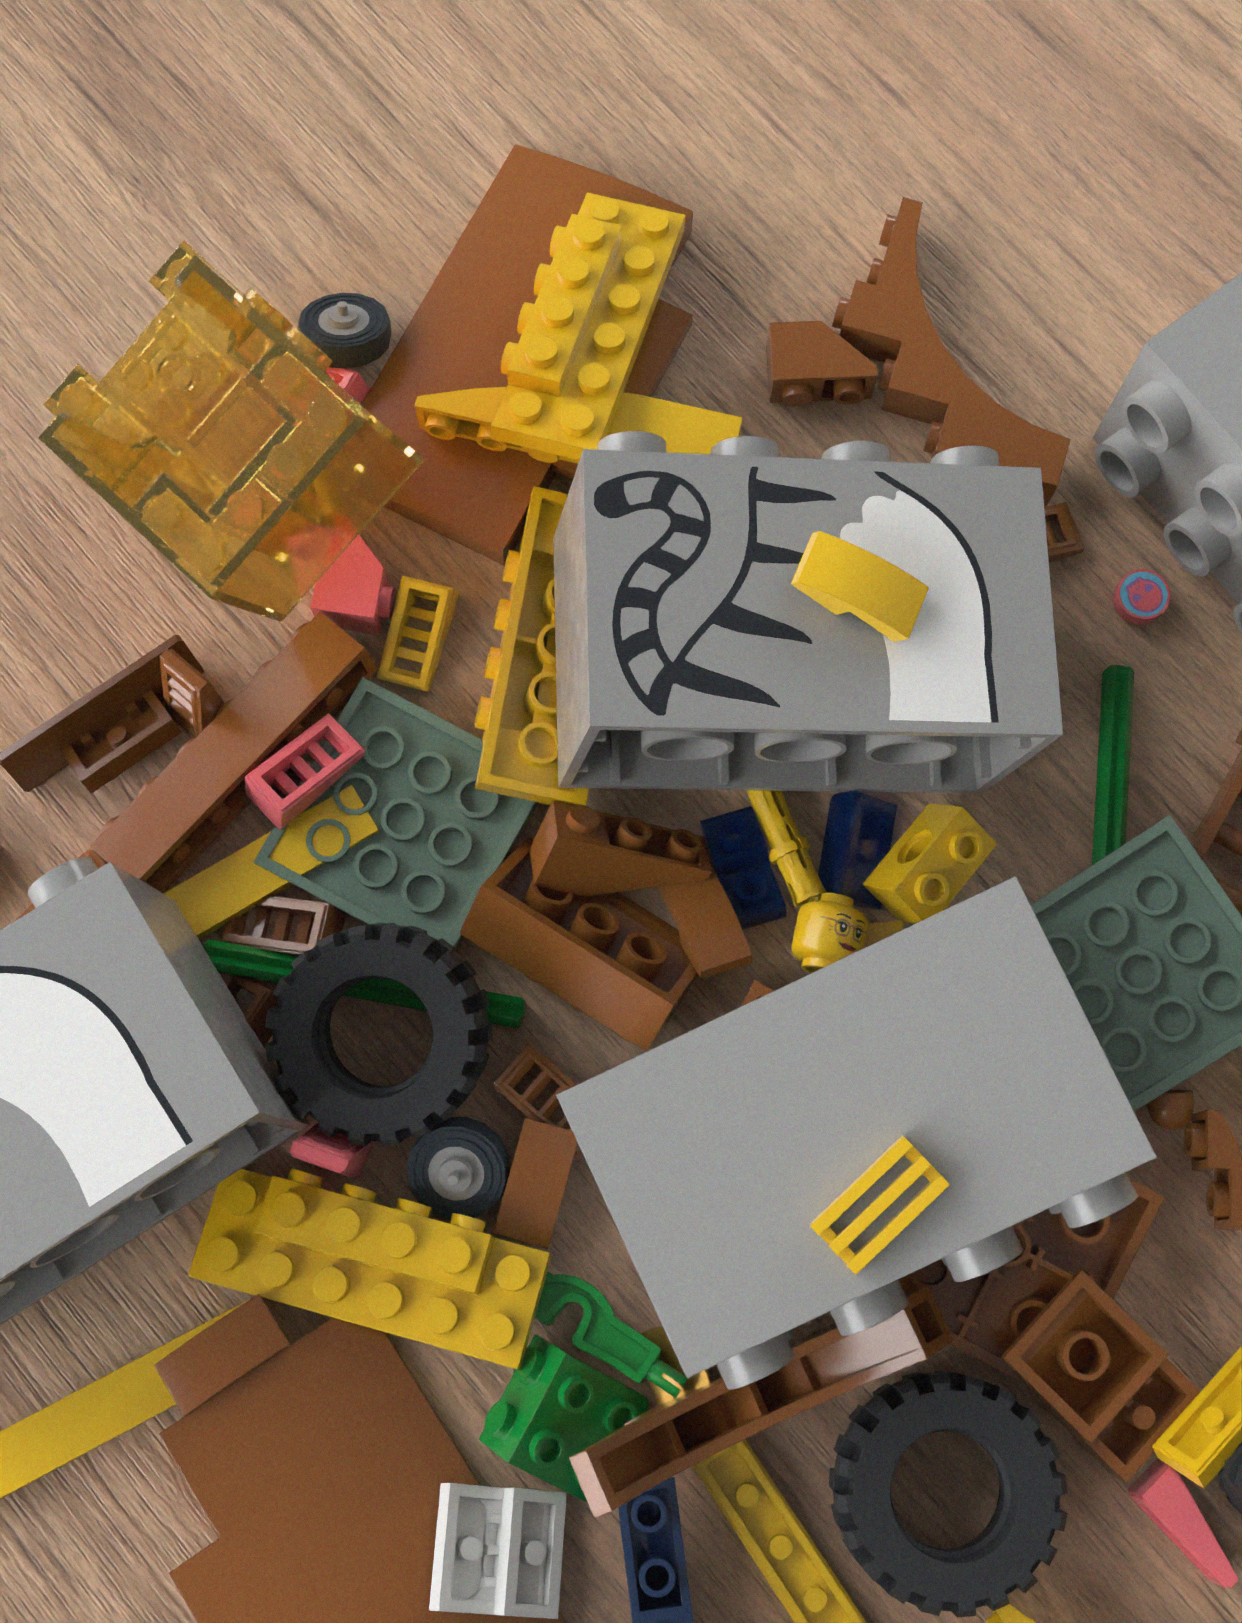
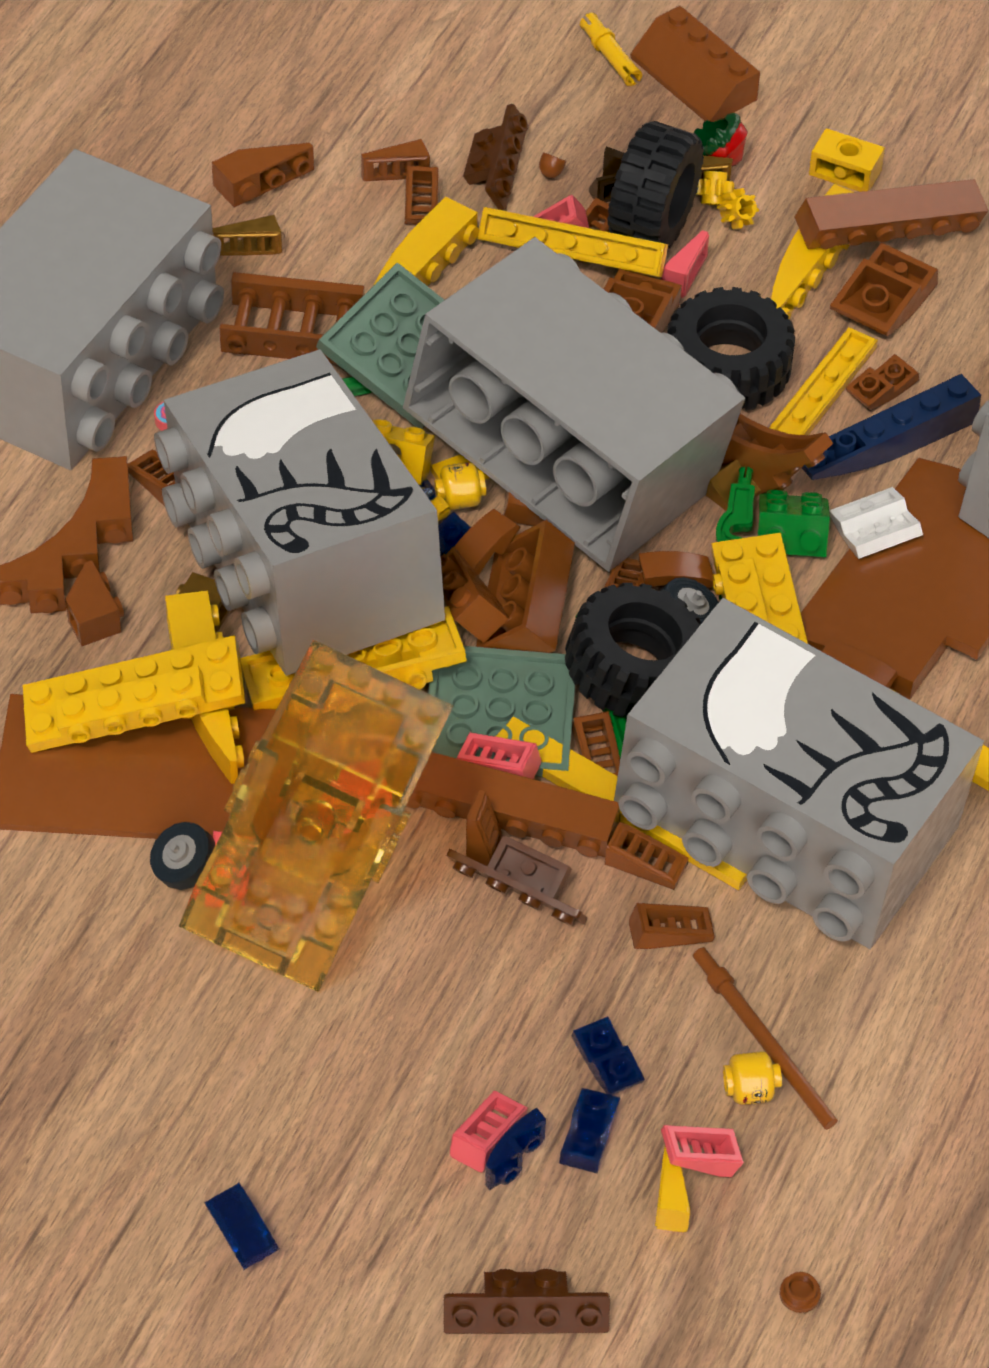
camera: 115 degrees left, 25 degrees down
(840, 1242) = (618, 332): yellow tile -> none
(860, 582) = (288, 432): yellow slope -> none

